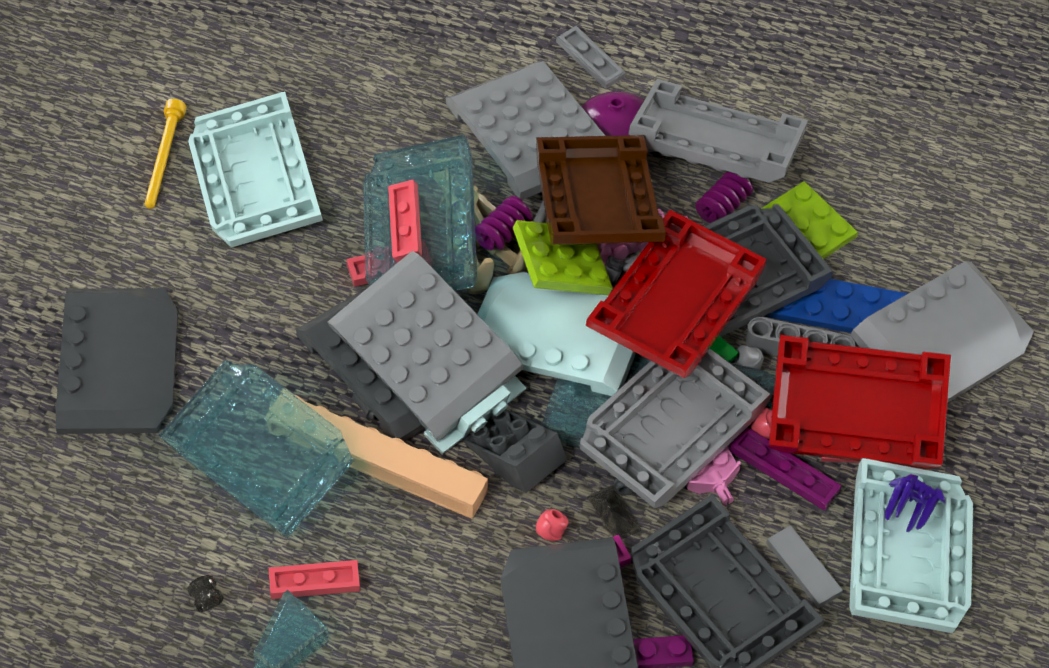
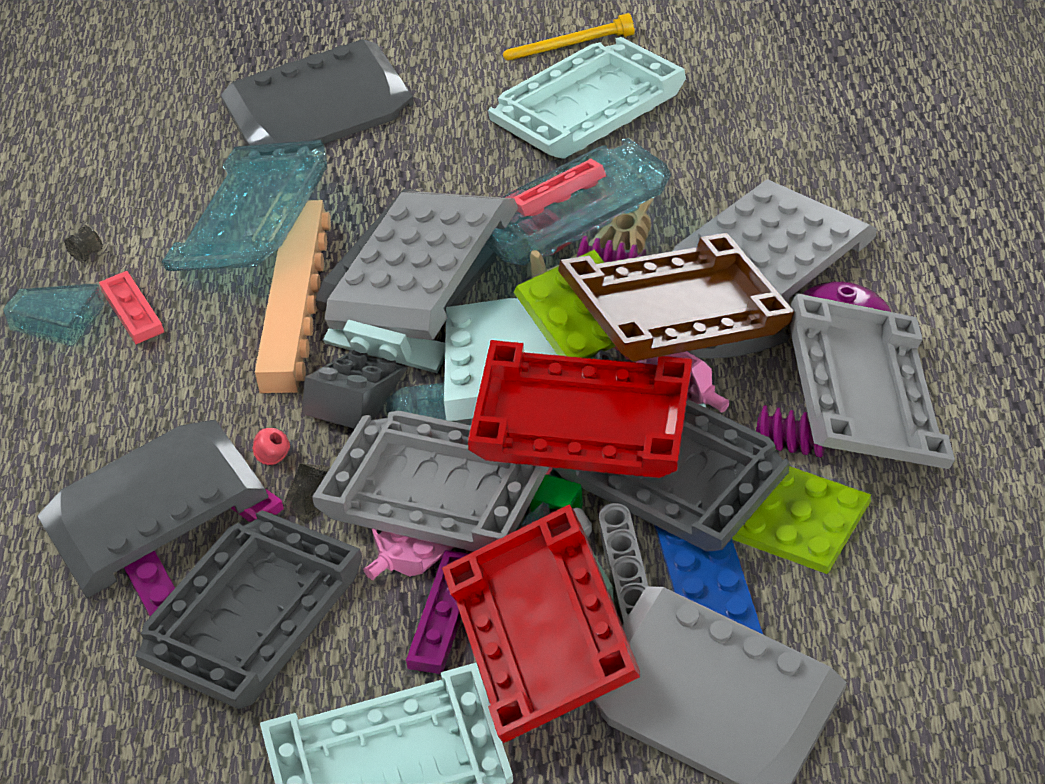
camera: 75 degrees right, 10 degrees down
(590, 57) = (919, 267): light grey tile -> none
(804, 566) = (320, 674): light grey tile -> none
(913, 489) = (445, 724): dark purple piece -> none

